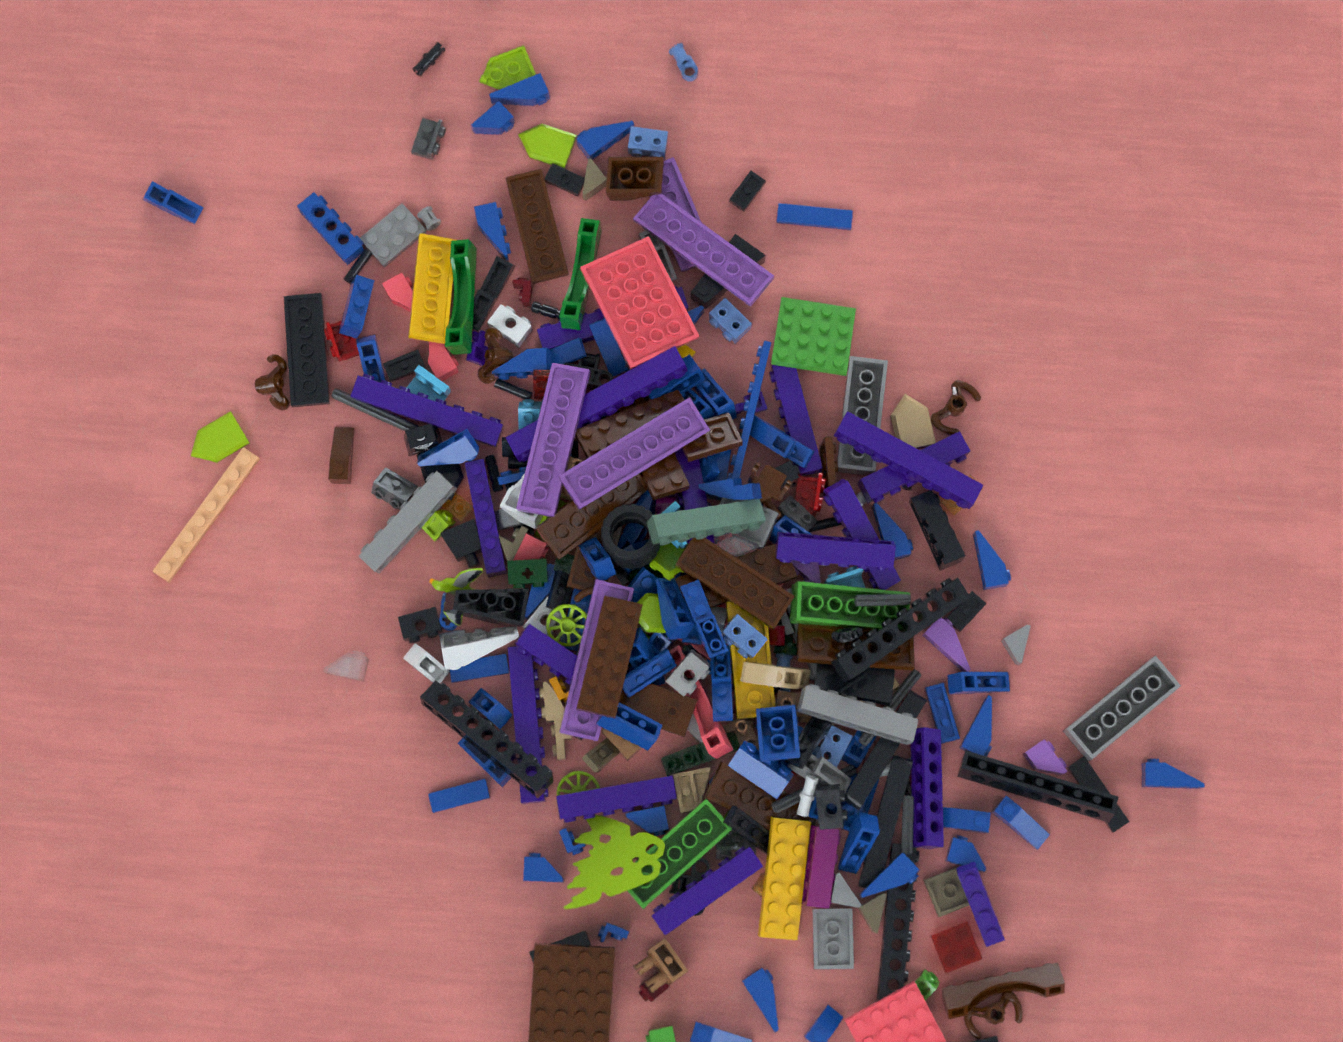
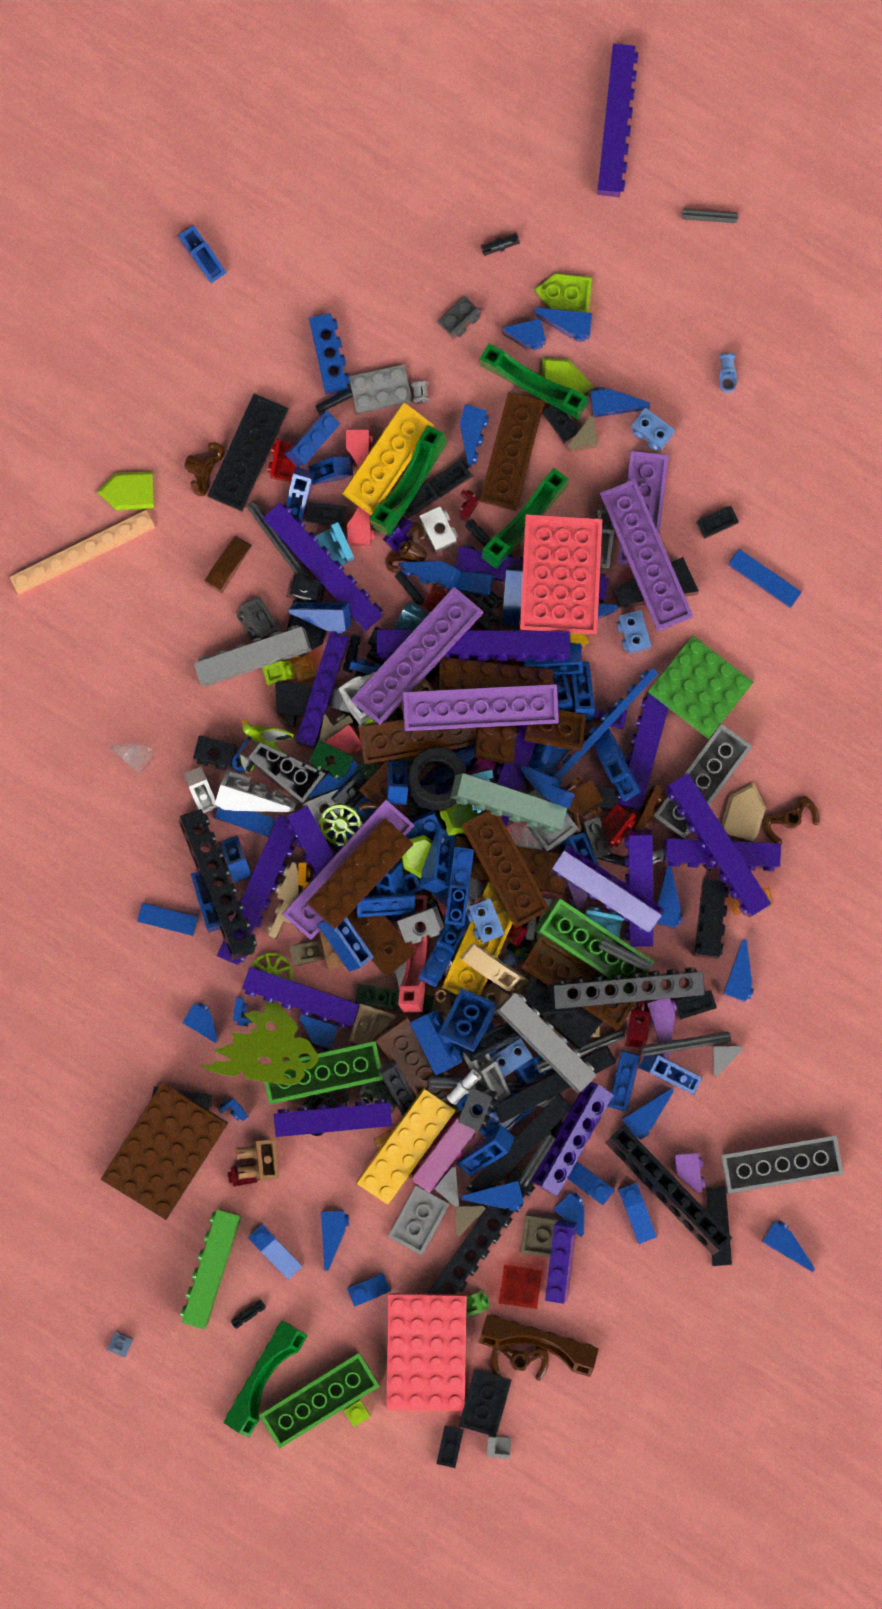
camera: 30 degrees right, 5 degrees up
(389, 324) = (332, 470): none -> blue slope
(548, 157) = (557, 395): none -> green arch
(634, 177) = (621, 456): reddish brown slope -> none
(847, 634) = (576, 968): black gear -> none
(929, 664) = (637, 1032): none -> dark red torso
(978, 649) = (687, 1043): none -> dark grey axle

